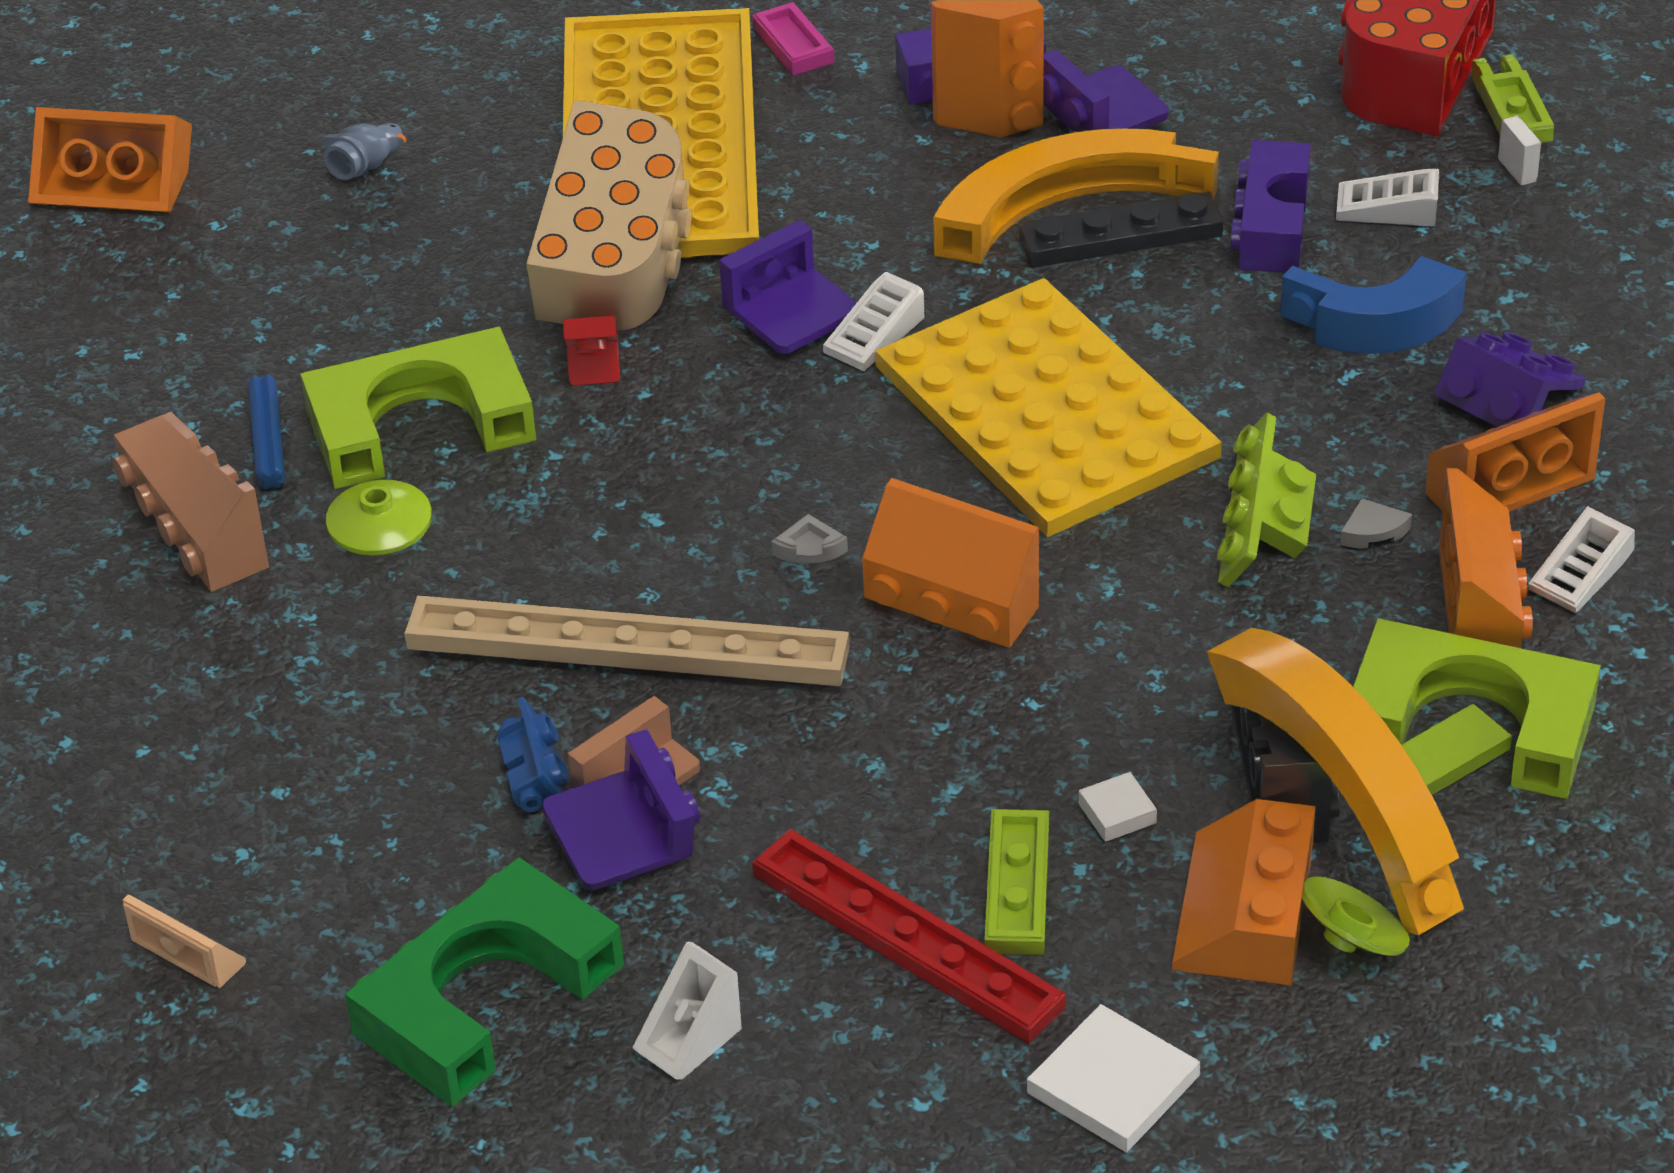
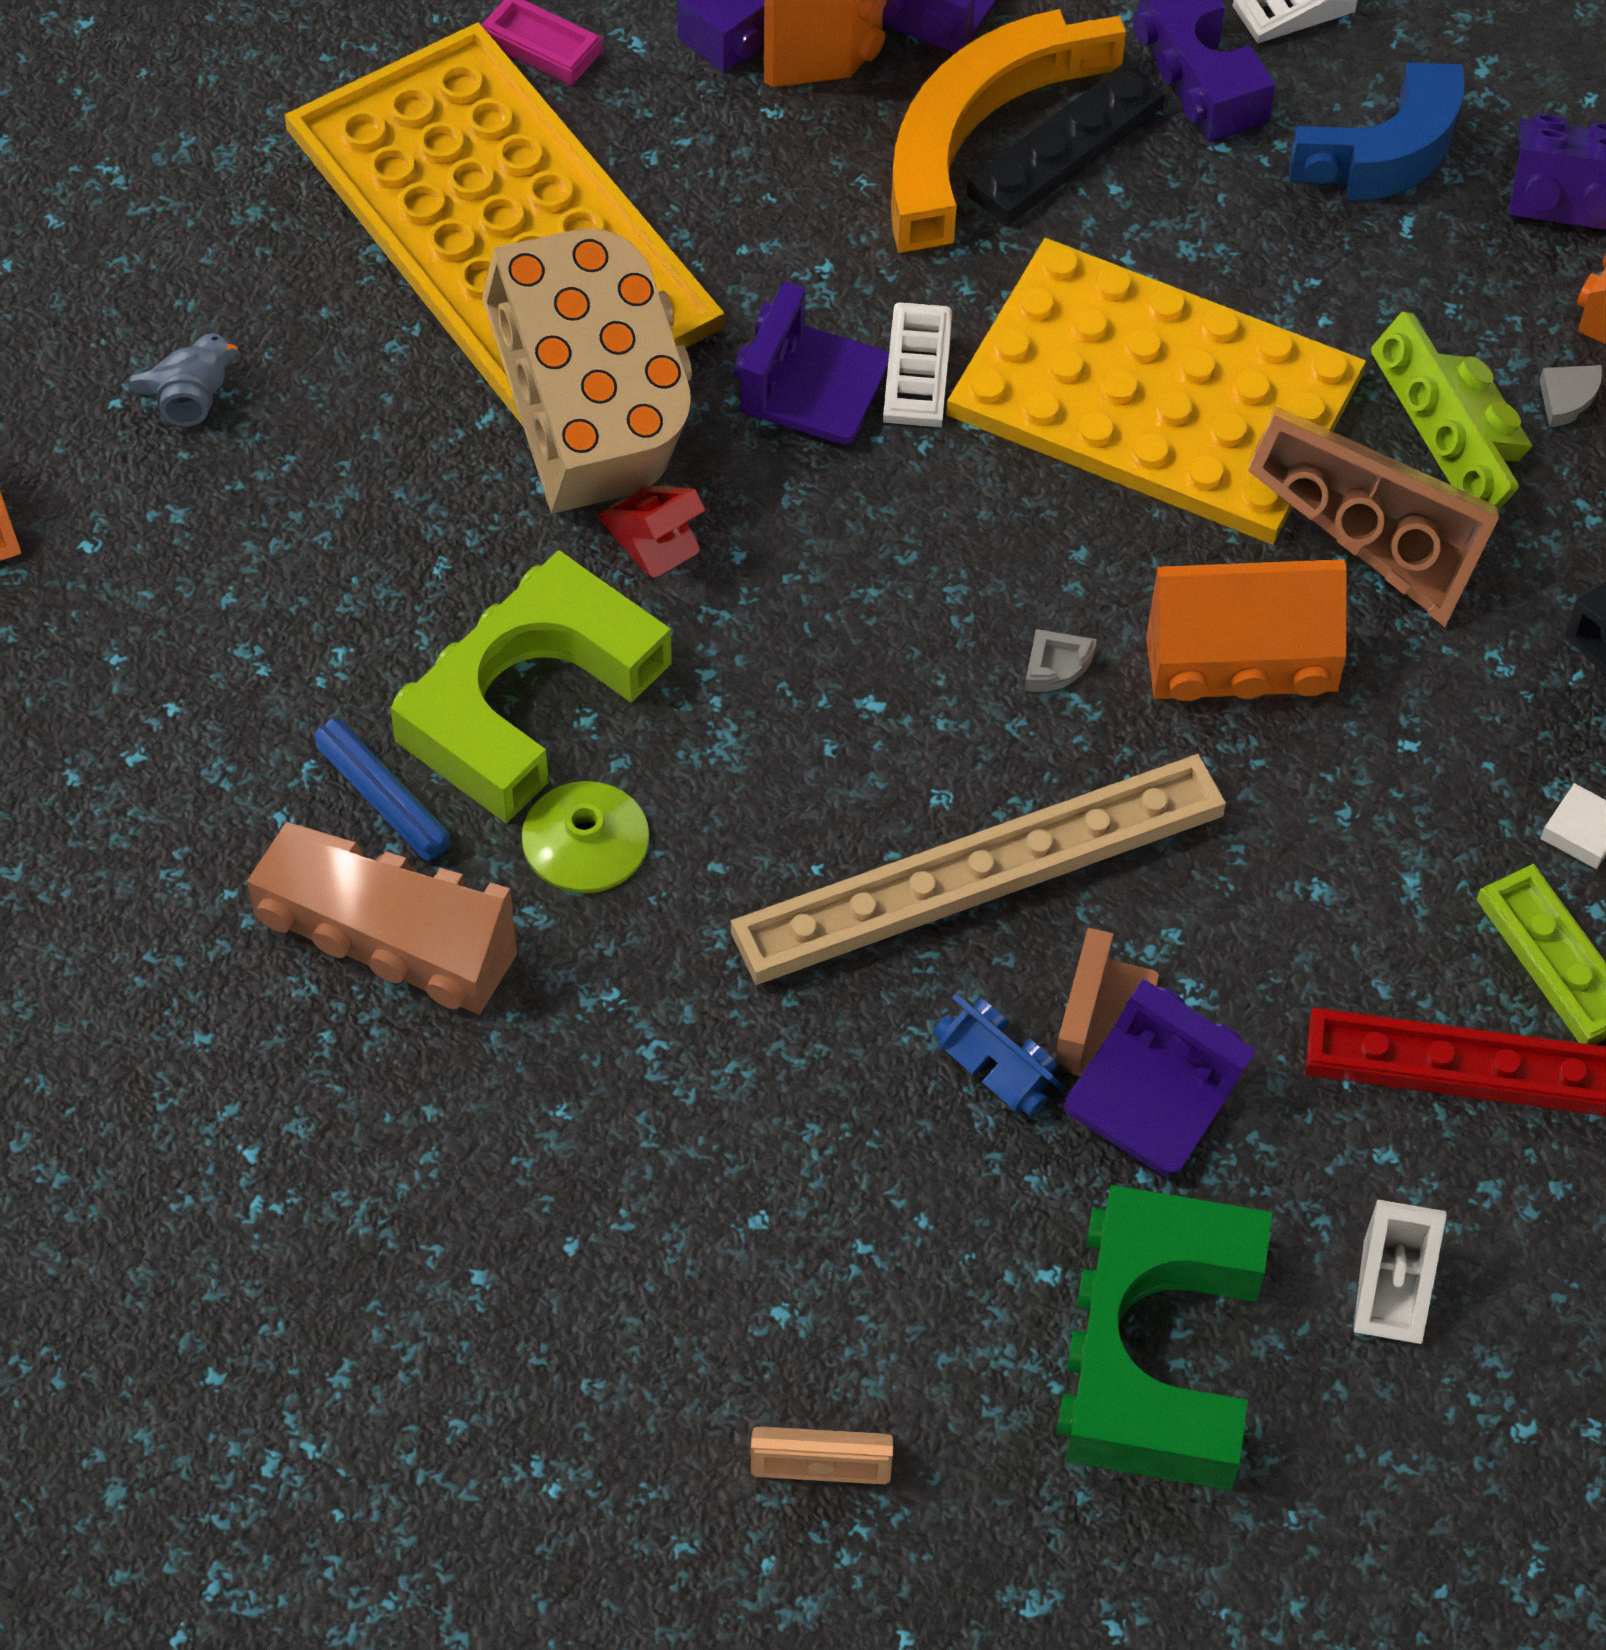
camera: 35 degrees left, 15 degrees up
(1136, 539) = (1385, 512): none -> nougat wedge

